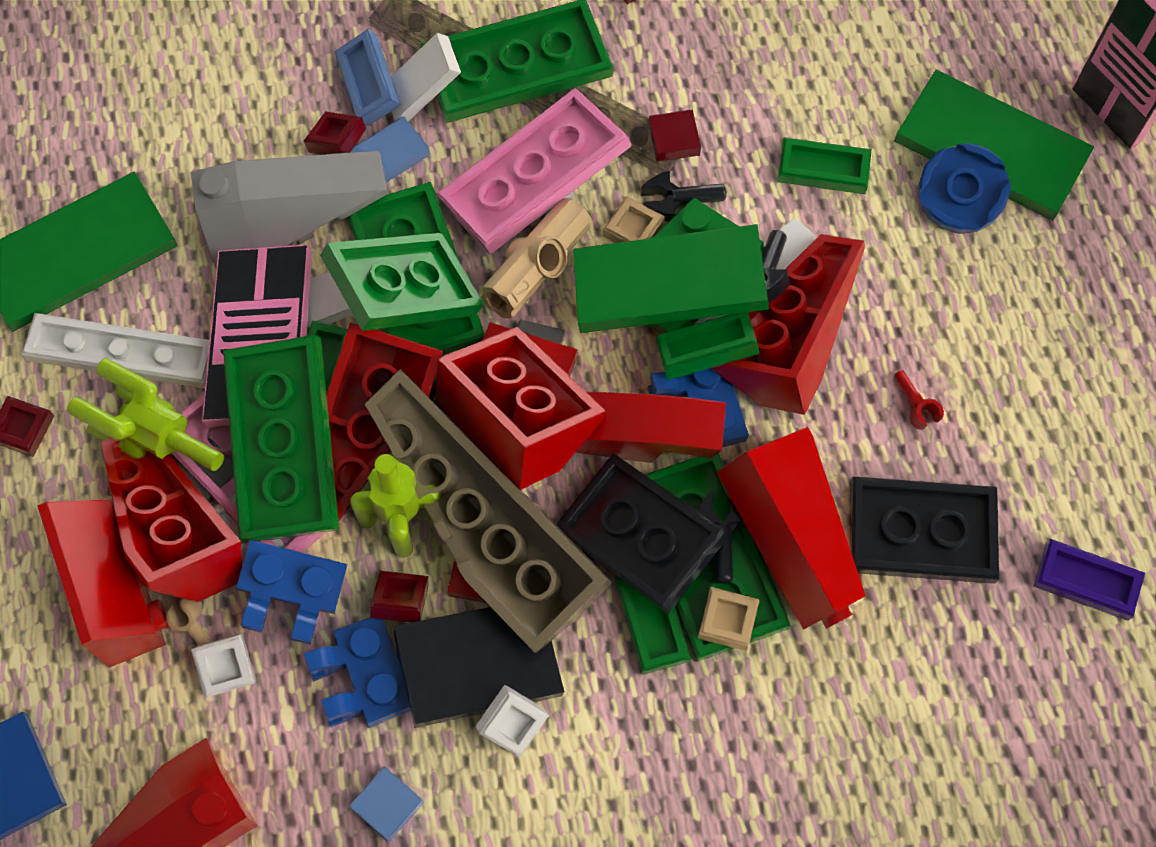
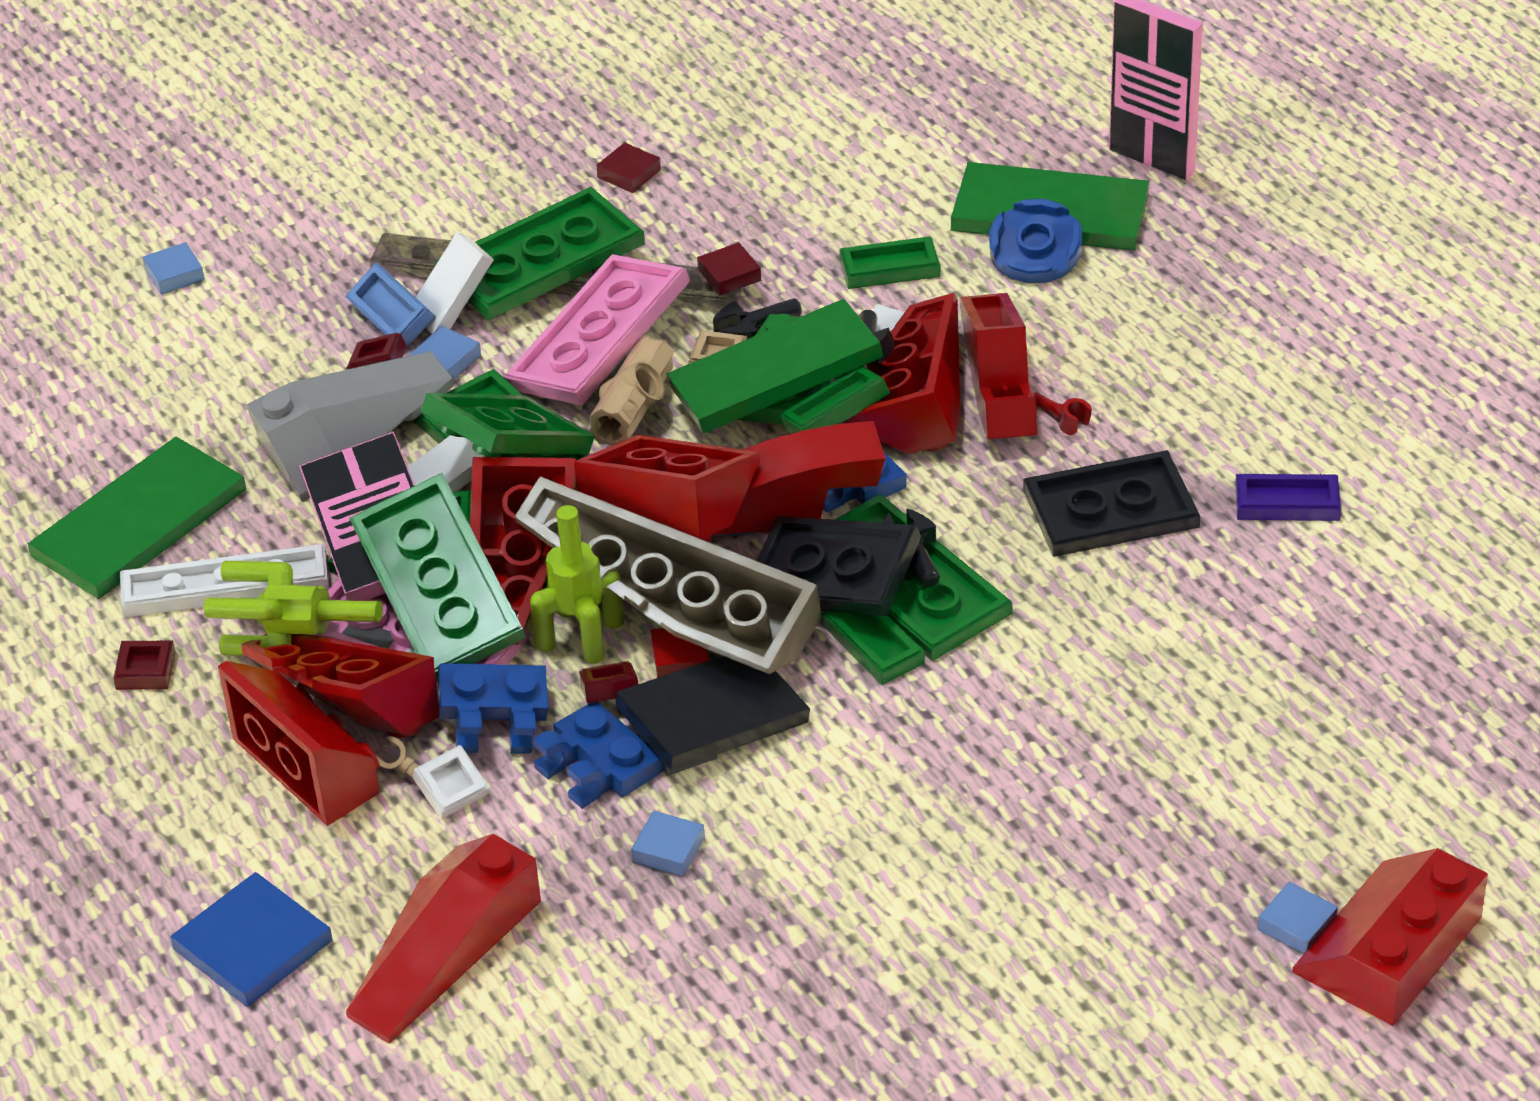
camera: 15 degrees left, 25 degrees down
(512, 721) = (767, 738): white tile -> none
(728, 619) = (948, 607): tan tile -> none
(796, 526) = (982, 516): red slope -> none
(876, 335) = (999, 365): none -> red slope

